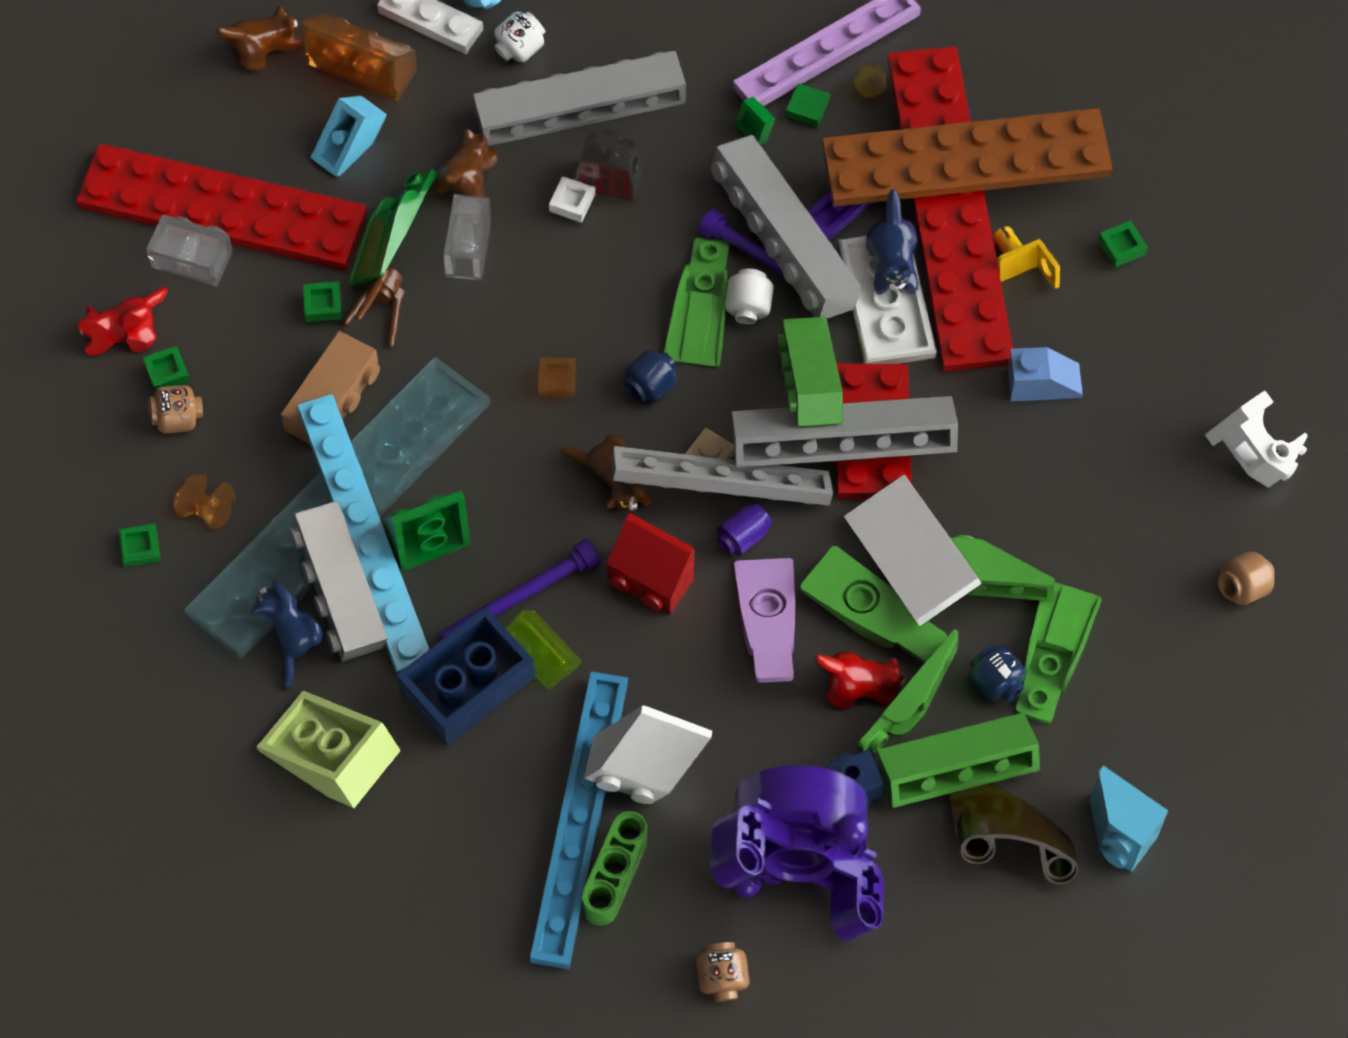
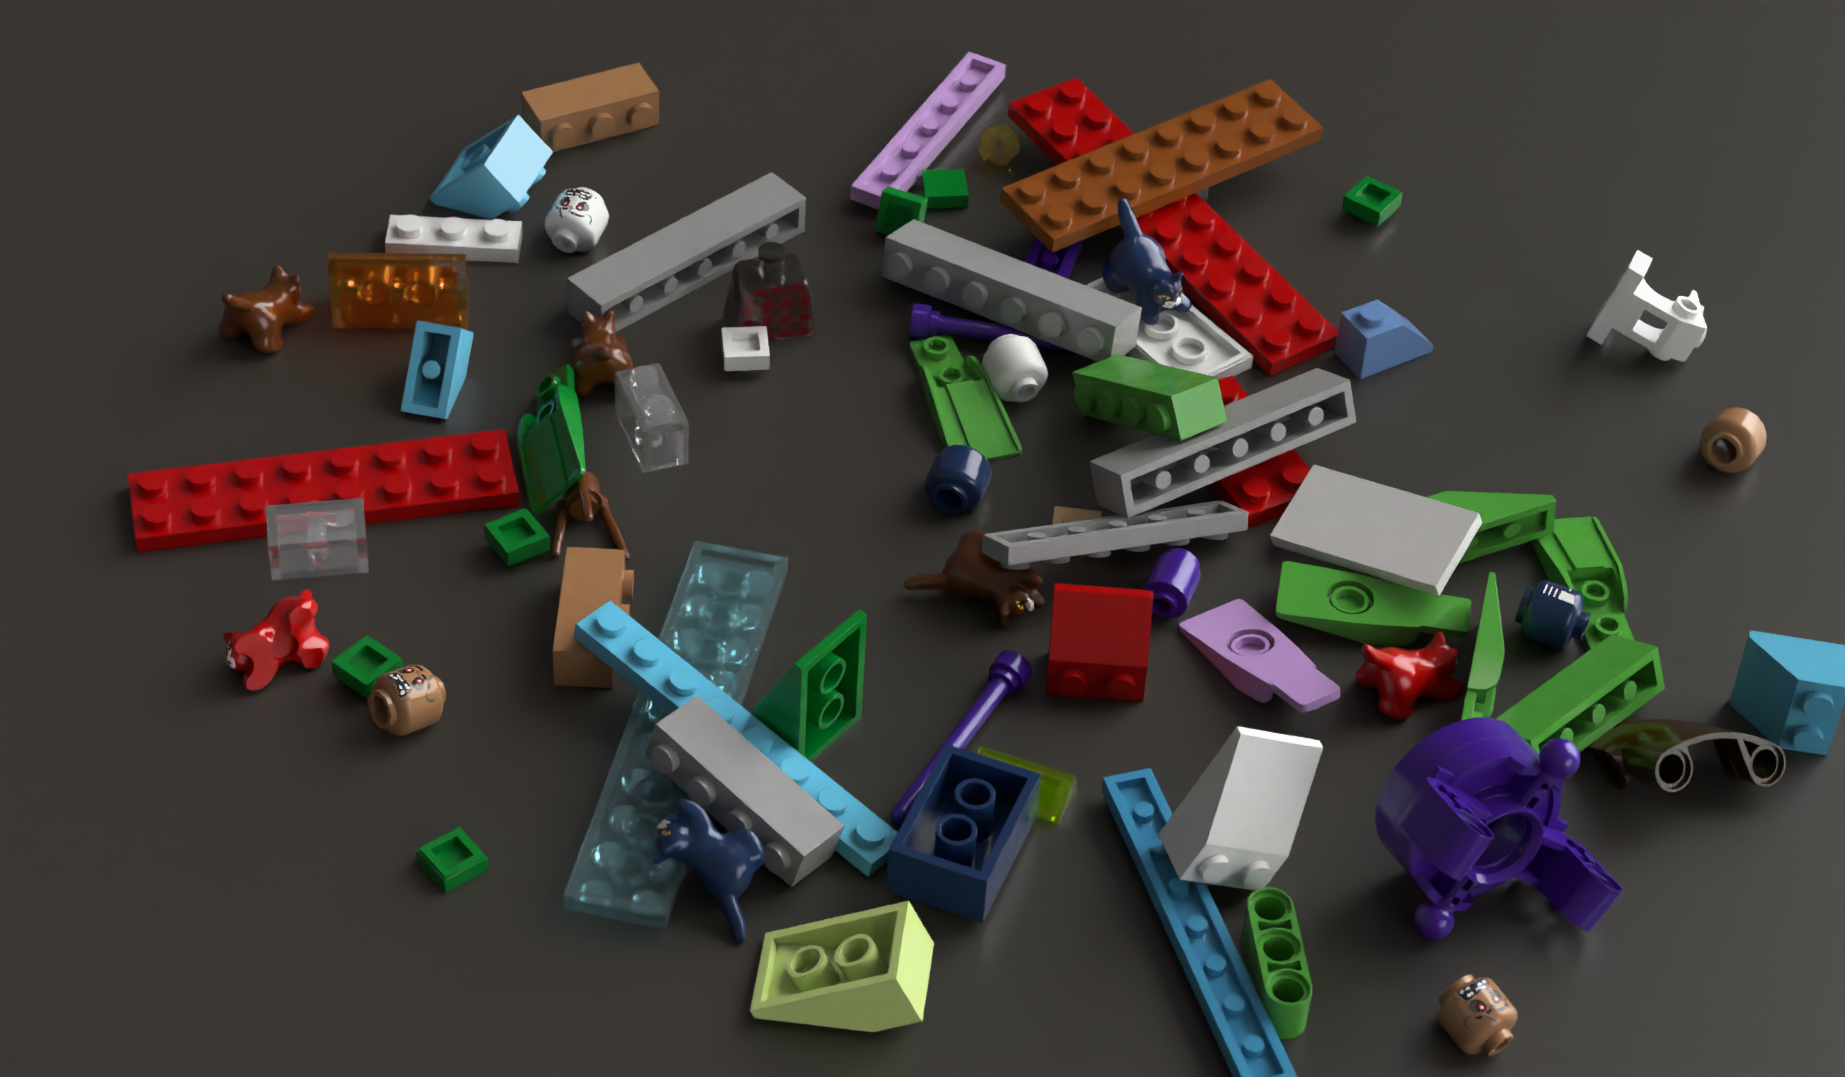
camera: 30 degrees left, 20 degrees down
(214, 508) = (488, 788): clear orange piece -> none
(557, 376) = (850, 516): clear orange plate -> none
(1020, 258) = (1288, 239): yellow bracket -> none

